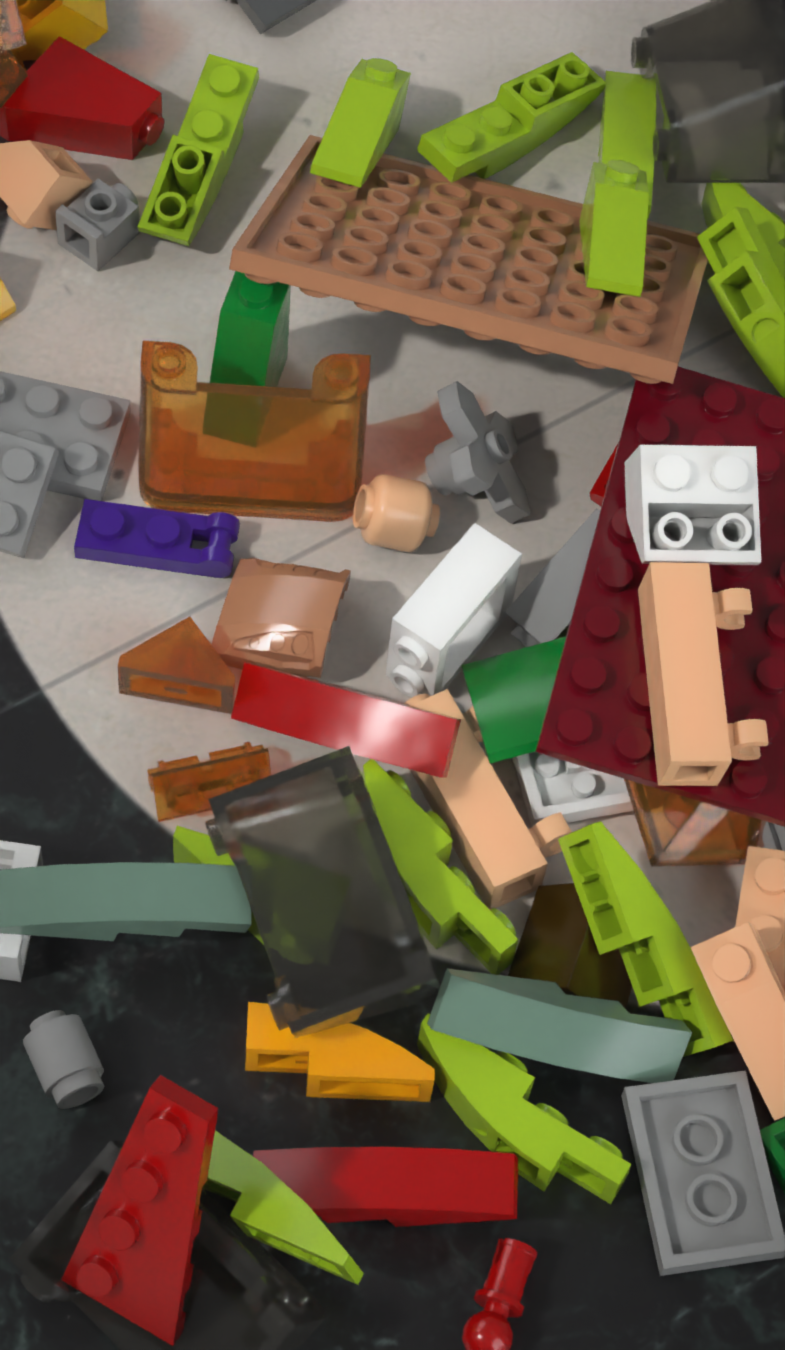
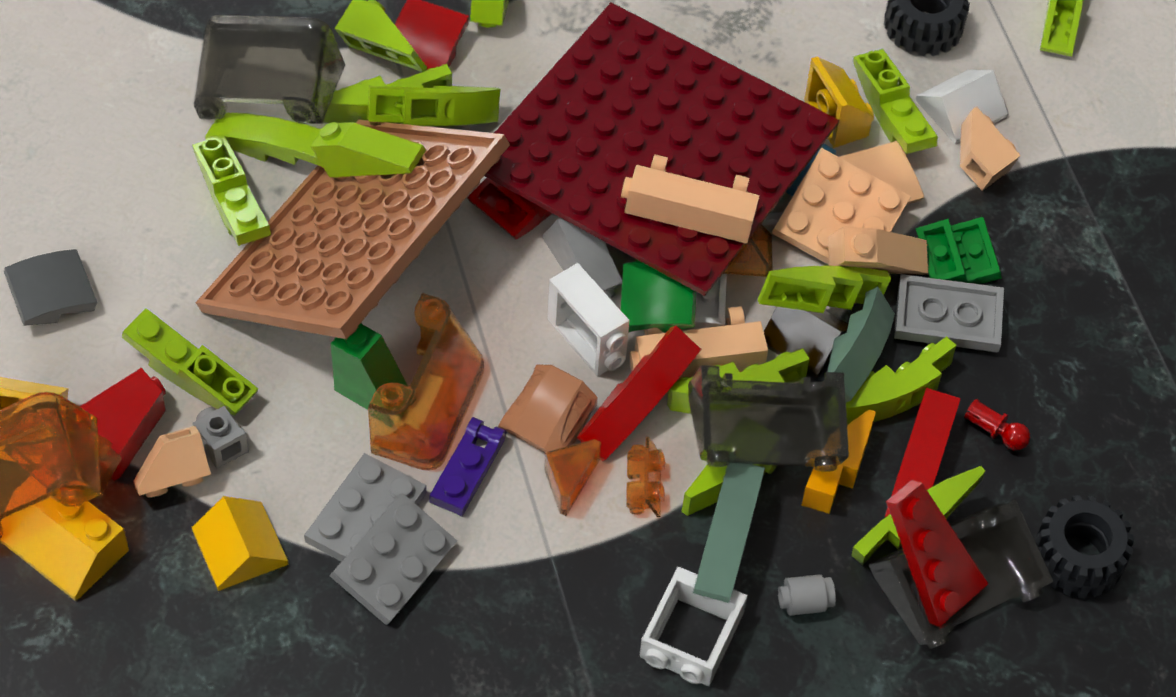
camera: 70 degrees left, 5 degrees down
(362, 122) = (213, 265): lime slope -> none
(395, 513) = (499, 334): light nougat head -> none
(477, 455) = (478, 281): light grey plant -> none
(694, 504) = (592, 162): white slope -> none

